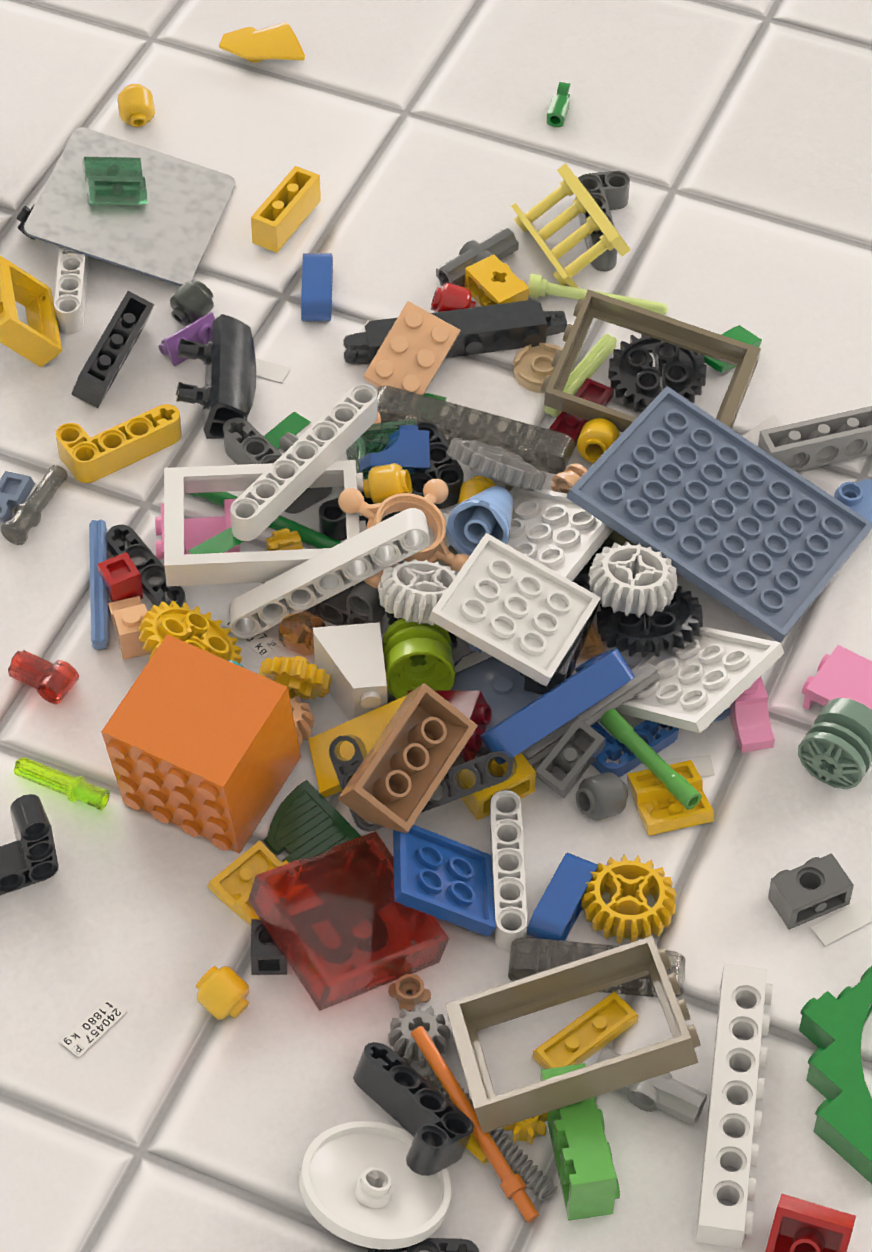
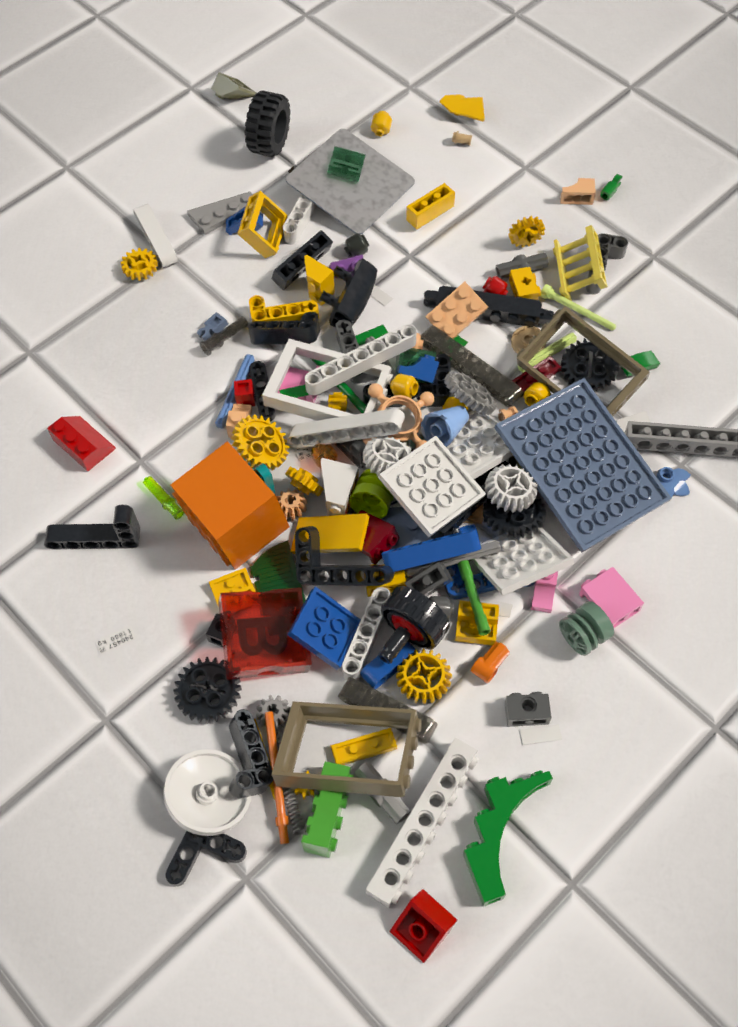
camera: 25 degrees right, 10 degrees up
(49, 679) = (183, 436): clear red piece -> none
(138, 466) = (280, 331): none -> black beam
(156, 369) = (319, 279): none -> yellow slope
(222, 992) = (185, 648): yellow head -> none
(281, 94) = (461, 138): none -> tan pin
(291, 1042) = (201, 707): none -> black gear
(317, 287) = (427, 256): blue beam -> none
(408, 760) = (332, 555): medium nougat slope -> none
(409, 983) = (278, 680): medium nougat plate -> none
(463, 204) = (526, 231): none -> yellow gear
(516, 126) = (580, 193): none -> light nougat arch
(577, 815) = (414, 620): none -> black wheel
(718, 850) = (488, 665): none -> orange piece

